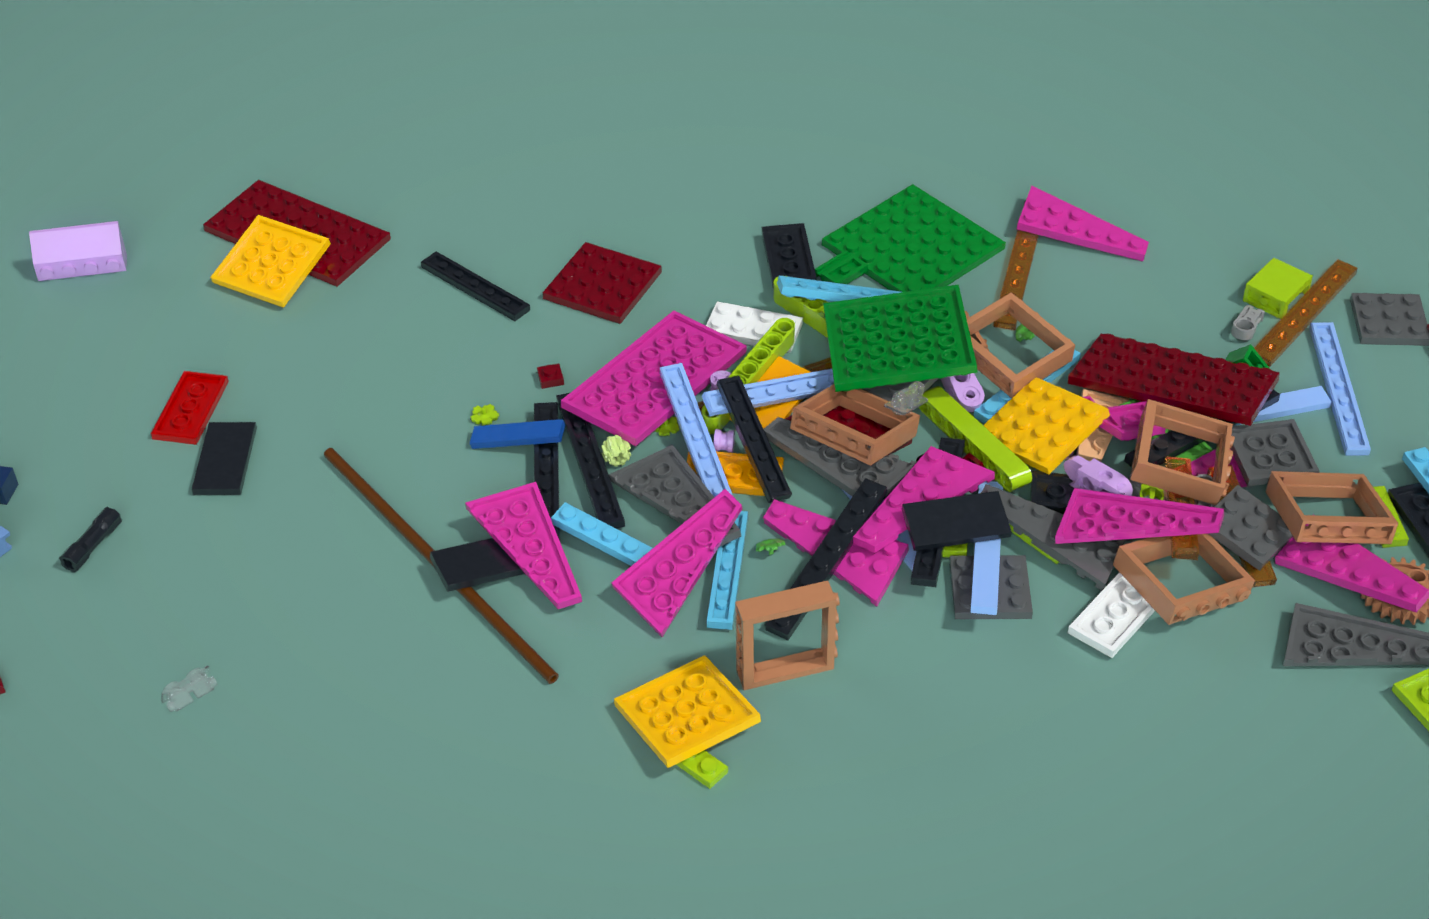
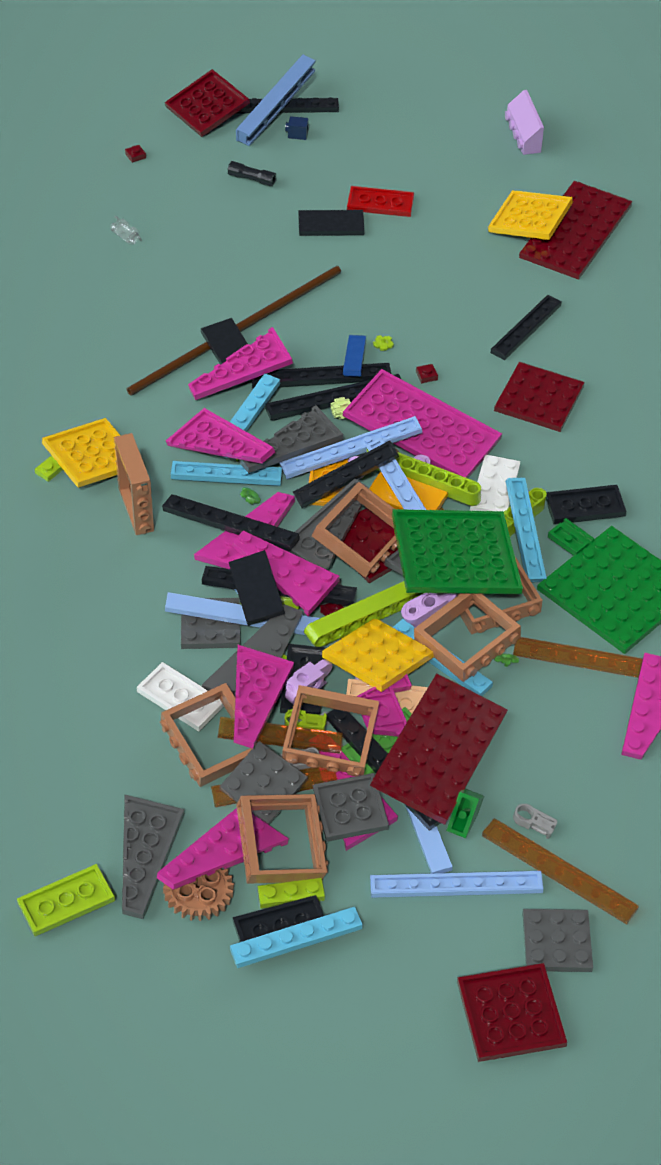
camera: 85 degrees right, 5 degrees up
(907, 399) = (380, 556): clear hinge -> none
(1276, 287) = (587, 846): lime panel -> none

